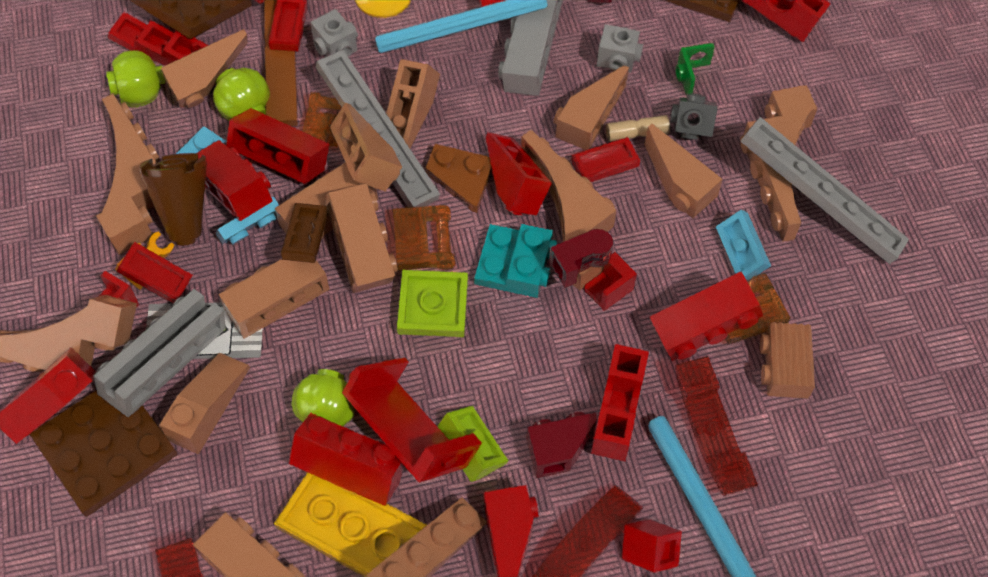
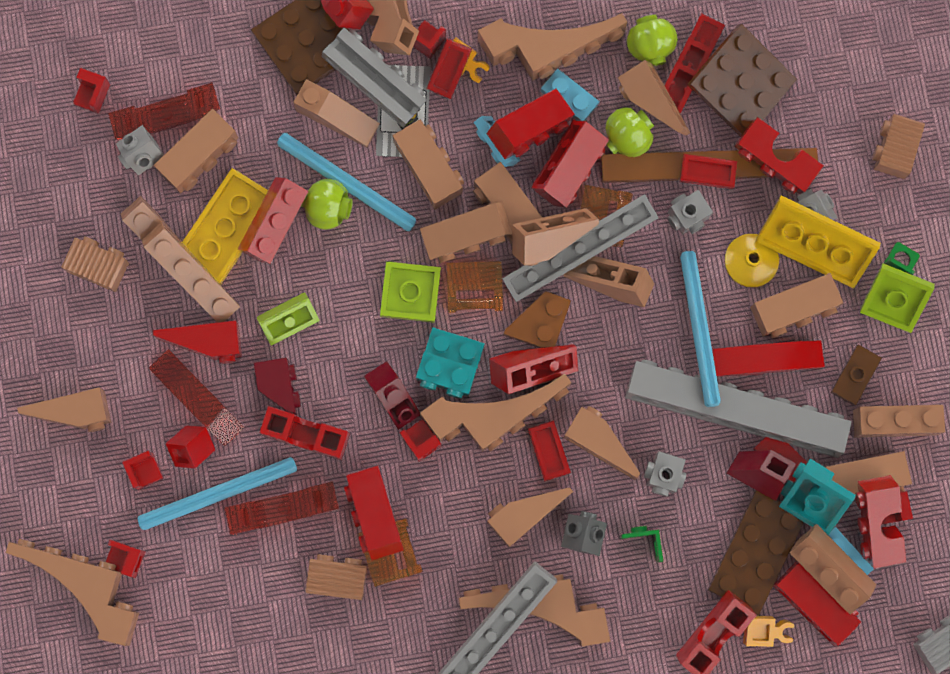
camera: 90 degrees right, 20 degrees up
(177, 194) = (517, 80): reddish brown cone -> none
(282, 400) = (352, 185): none -> medium azure axle
(304, 233) = (469, 185): reddish brown plate -> none
(404, 424) = (297, 264): red panel -> none
(559, 313) = (392, 395): none -> dark red slope
(580, 254) = (436, 417): dark red leg -> none
(634, 128) = (580, 479): tan piece -> none
(743, 245) = (448, 558): medium azure plate -> none

